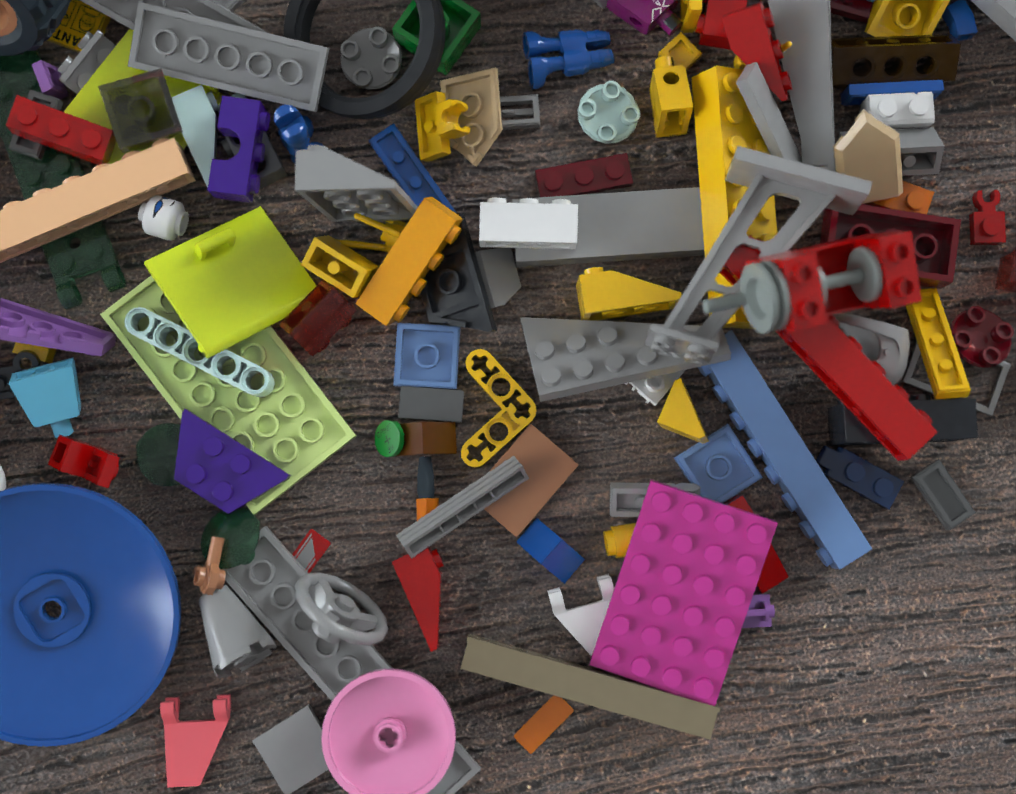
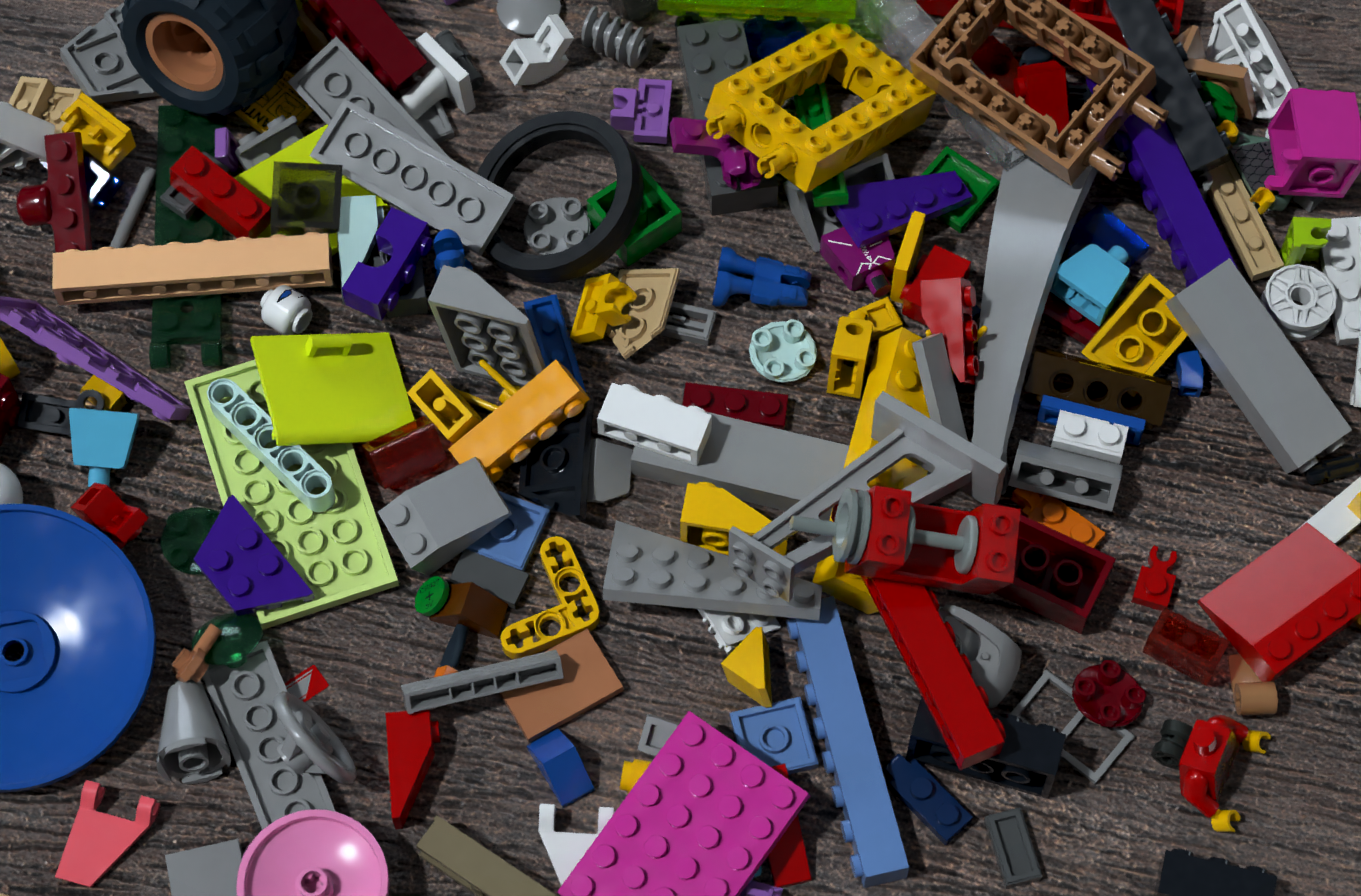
camera: 20 degrees right, 20 degrees down
(375, 366) = (444, 515): none -> light grey slope
(872, 154) = (1036, 470): tan tile -> none
(938, 347) = (1049, 676): yellow tile -> none

